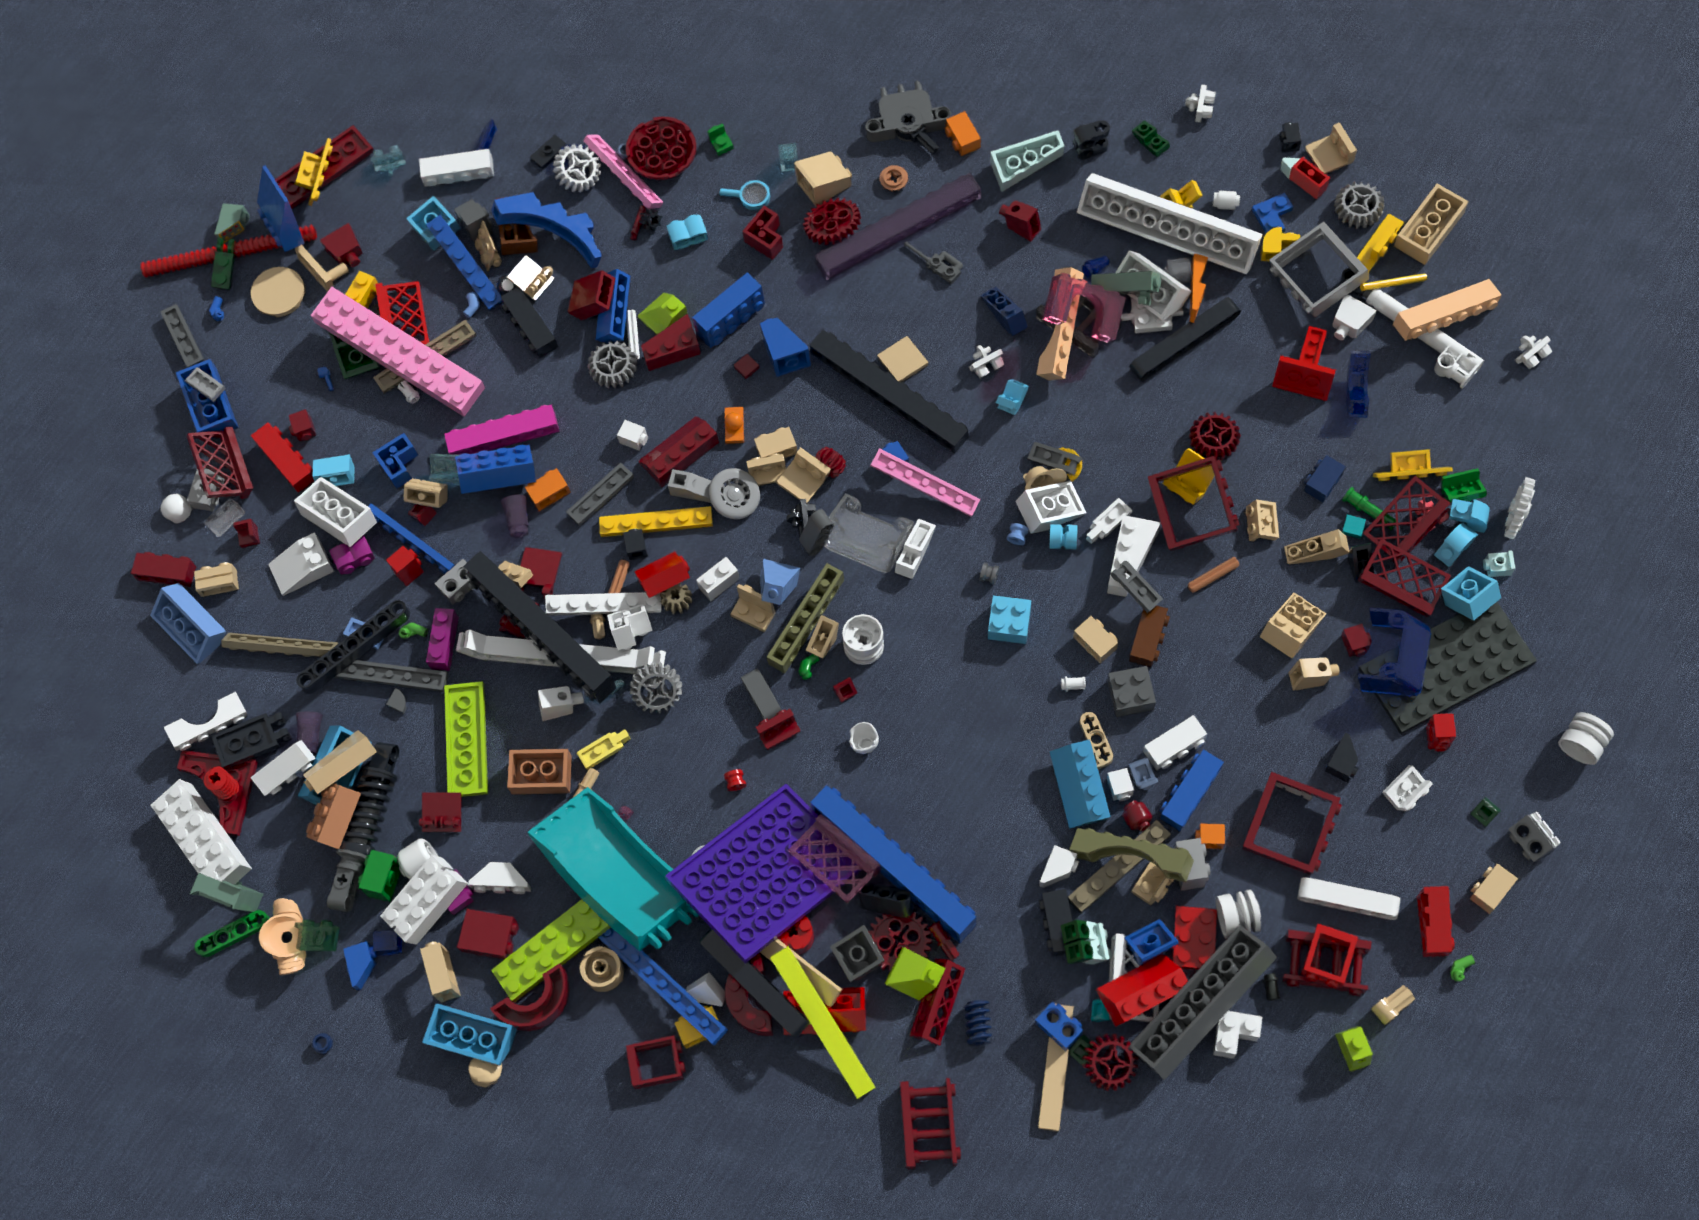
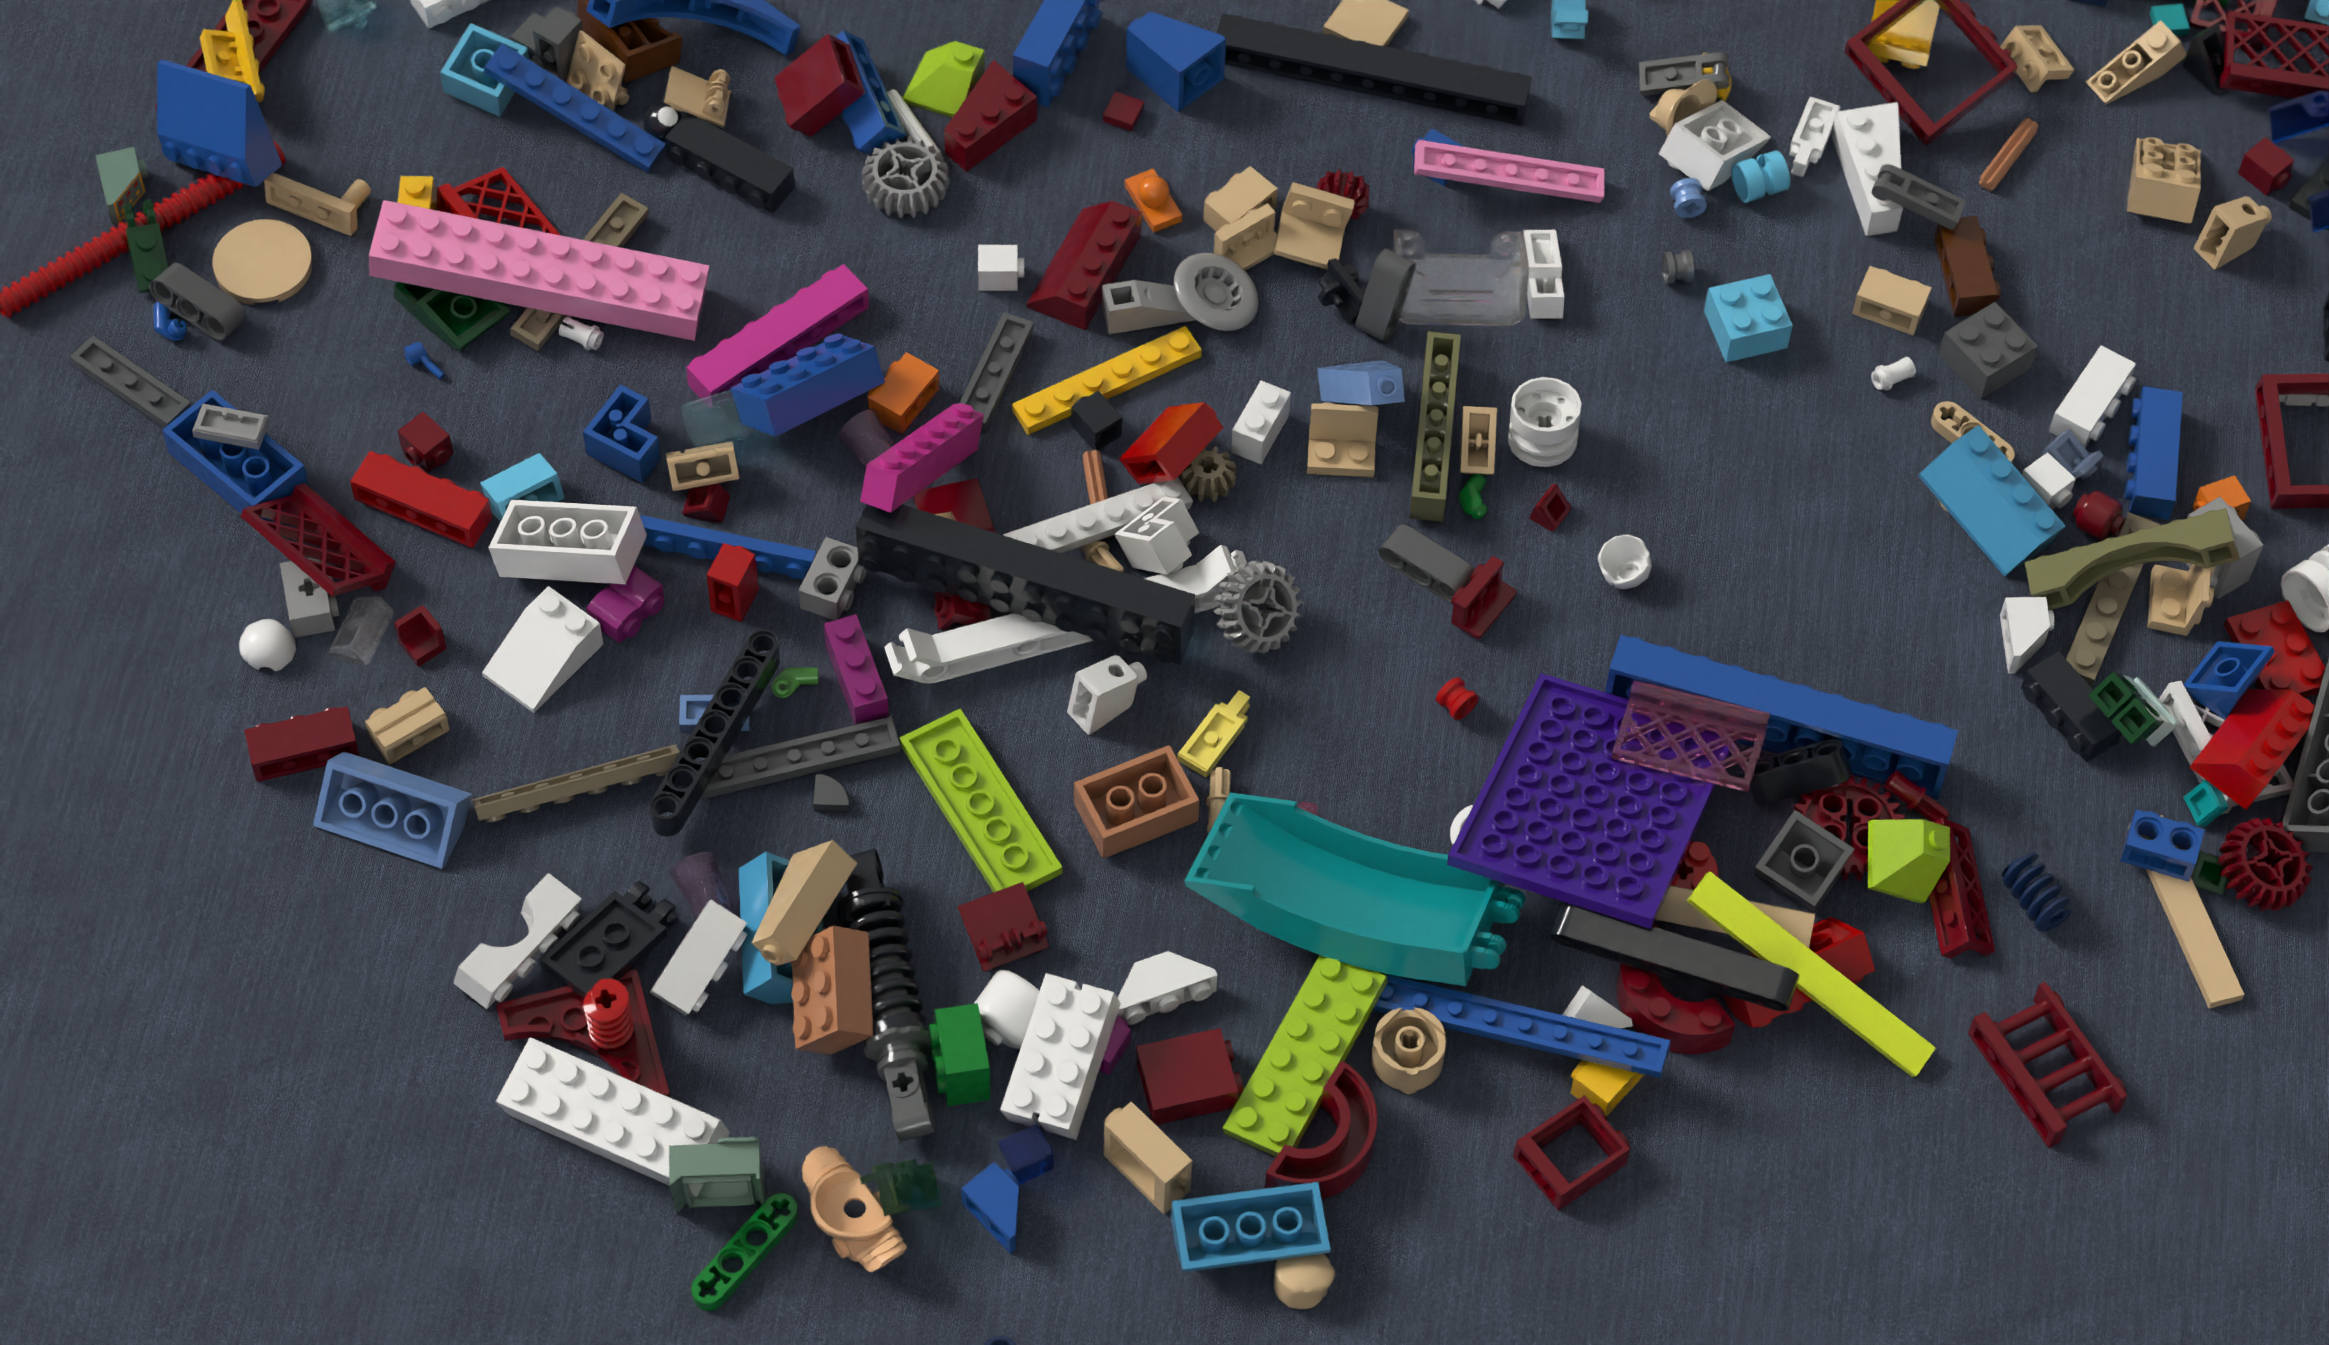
camera: 35 degrees left, 10 degrees down
(233, 304) = (197, 301): none -> dark grey beam
(343, 246) = (342, 155): dark red torso -> none
(474, 304) = (619, 171): medium blue arm -> none
(522, 536) = (922, 457): none -> dark pink brick

